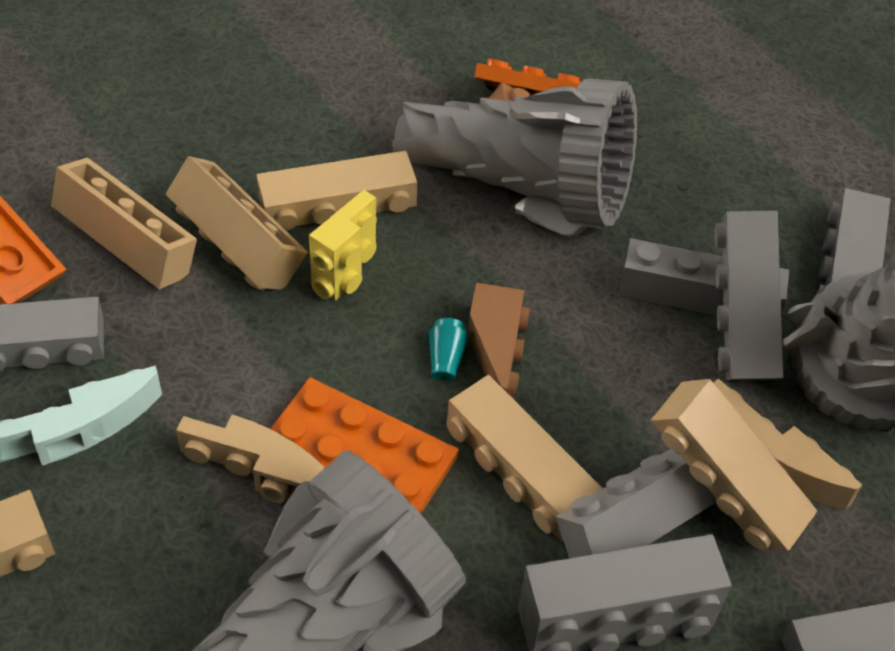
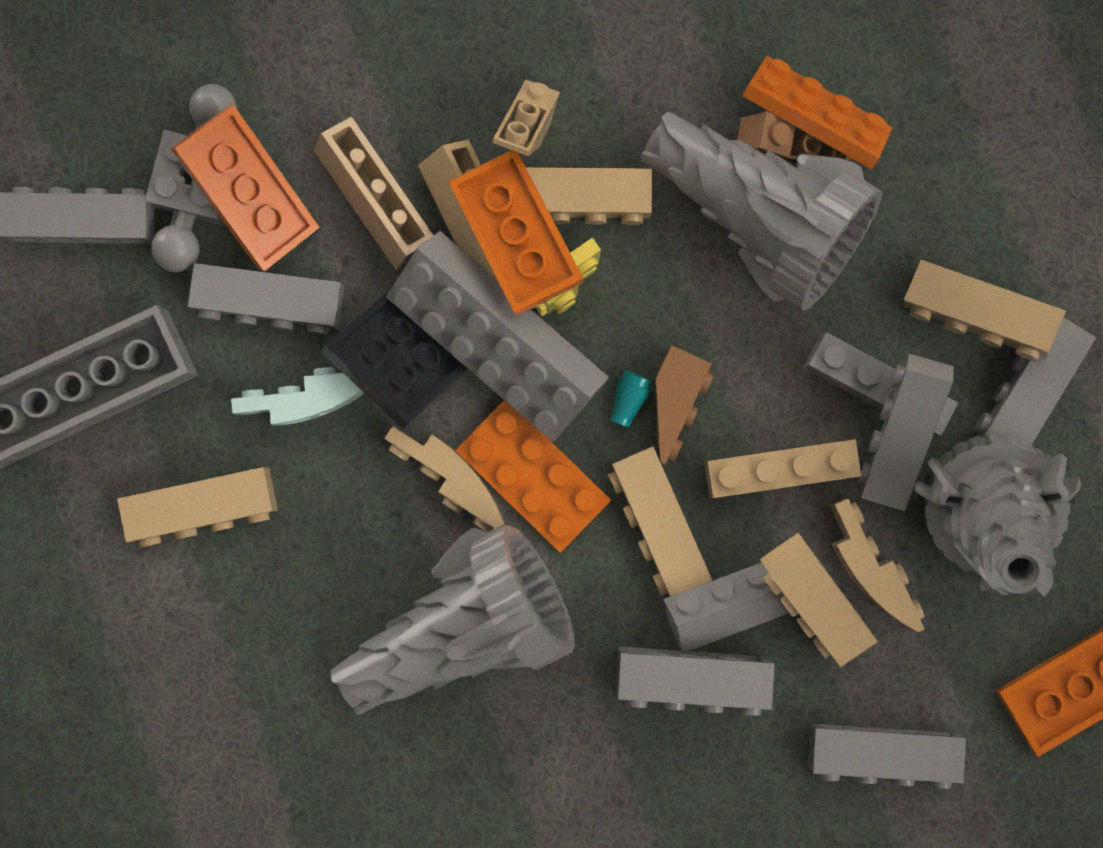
camera: 20 degrees right, 35 degrees up
(176, 349) = (393, 361): none -> black plate
(270, 131) = (527, 118): none -> tan slope
(284, 195) = (516, 232): none -> orange plate
(285, 309) = (509, 353): none -> light grey brick
(633, 374) = (782, 468): none -> tan brick
(798, 192) = (984, 310): none -> tan brick

